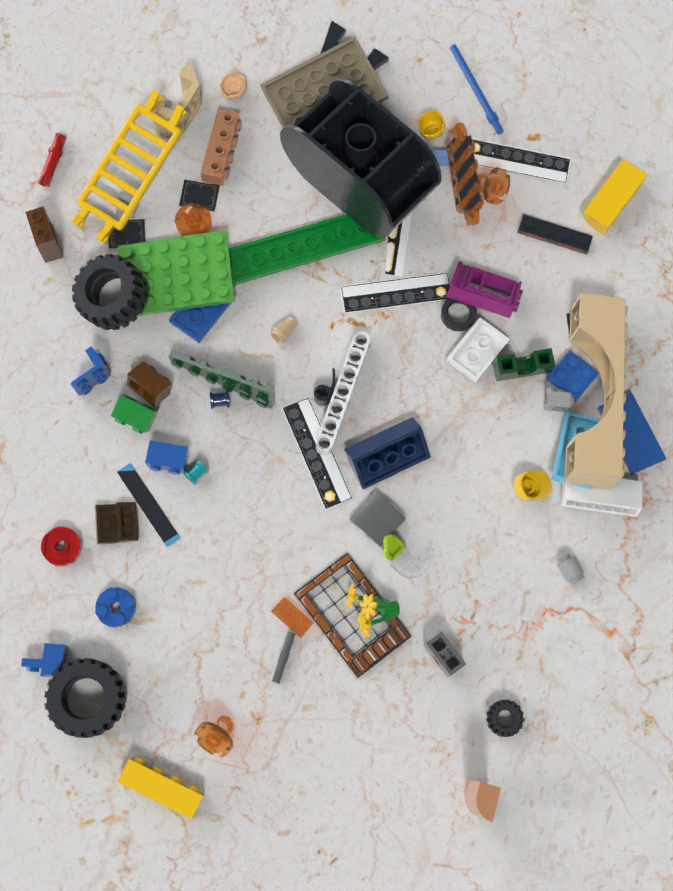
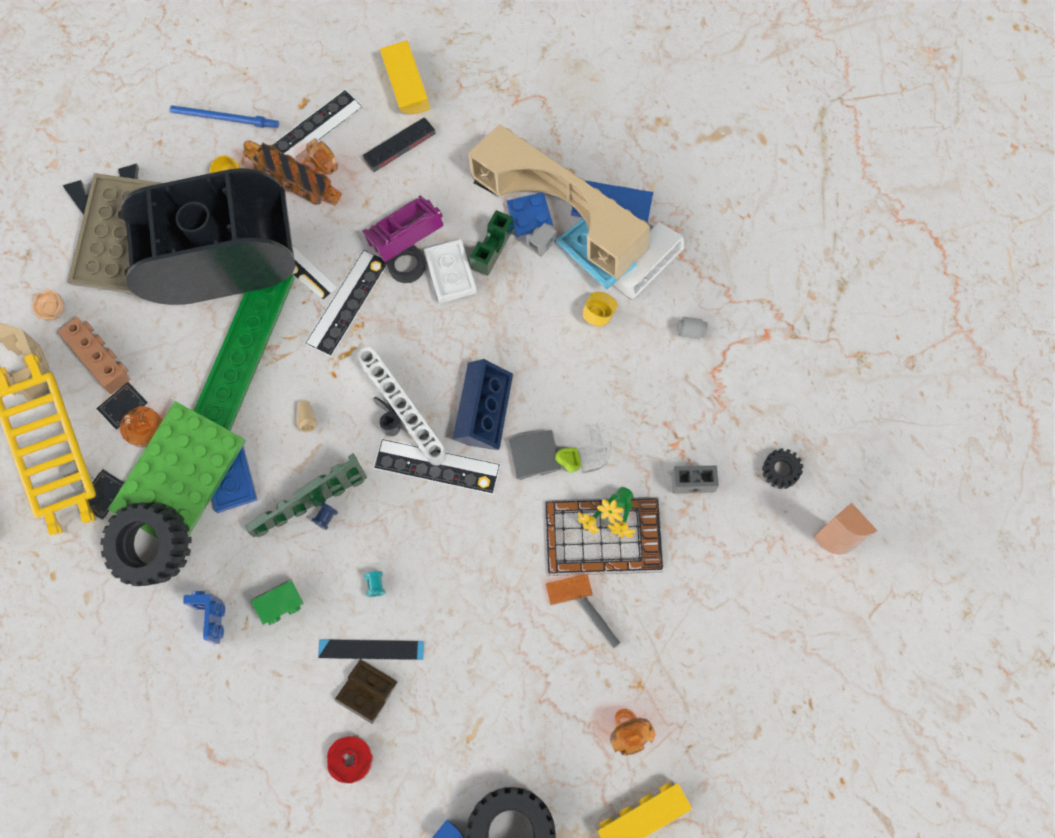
camera: 45 degrees left, 5 degrees down
(44, 234) = (40, 567): reddish brown window -> none
(126, 603) = (457, 750): blue plate -> none
(149, 383) = (260, 569): reddish brown brick -> none
(167, 457) = (341, 600): blue brick -> none

